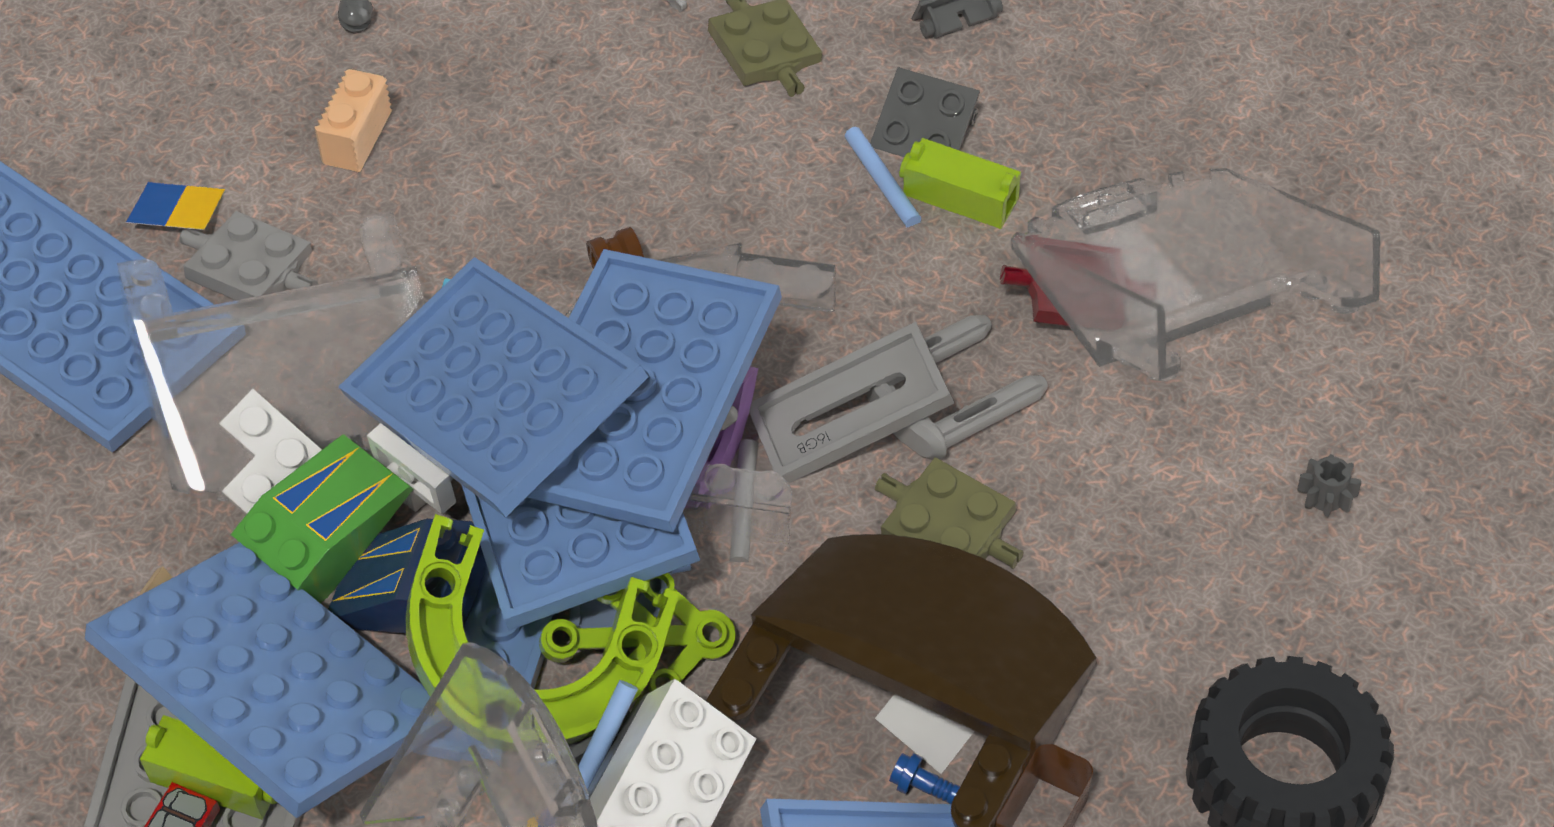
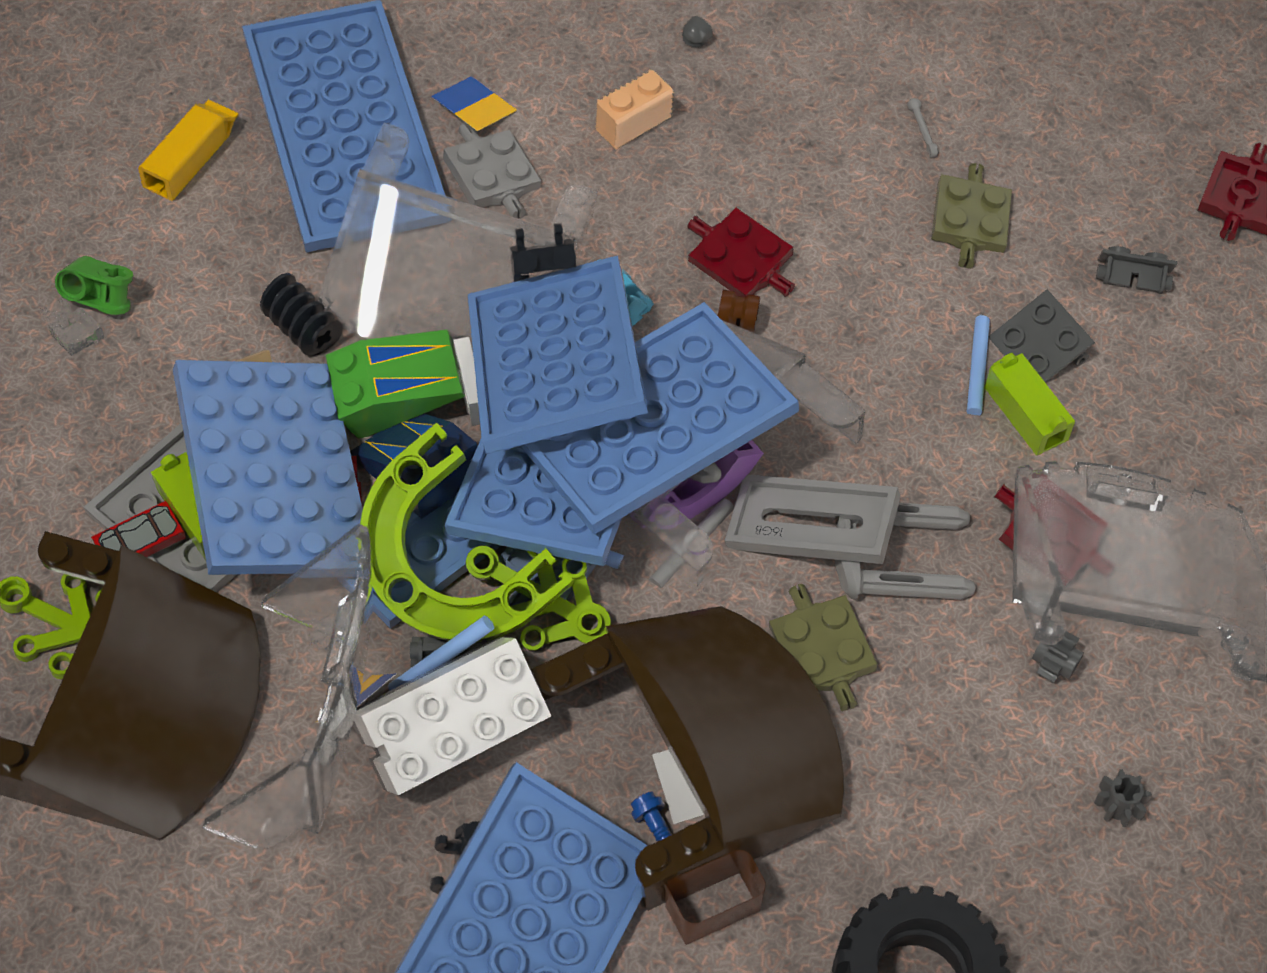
camera: 30 degrees right, 5 degrees up
(163, 519) = (300, 315): none -> black piece
(273, 443) = (398, 307): white plate -> none
(395, 303) = (541, 257): none -> black piece
(571, 200) = (741, 254): none -> dark red plate
(1172, 397) = (1059, 658): none -> dark grey gear

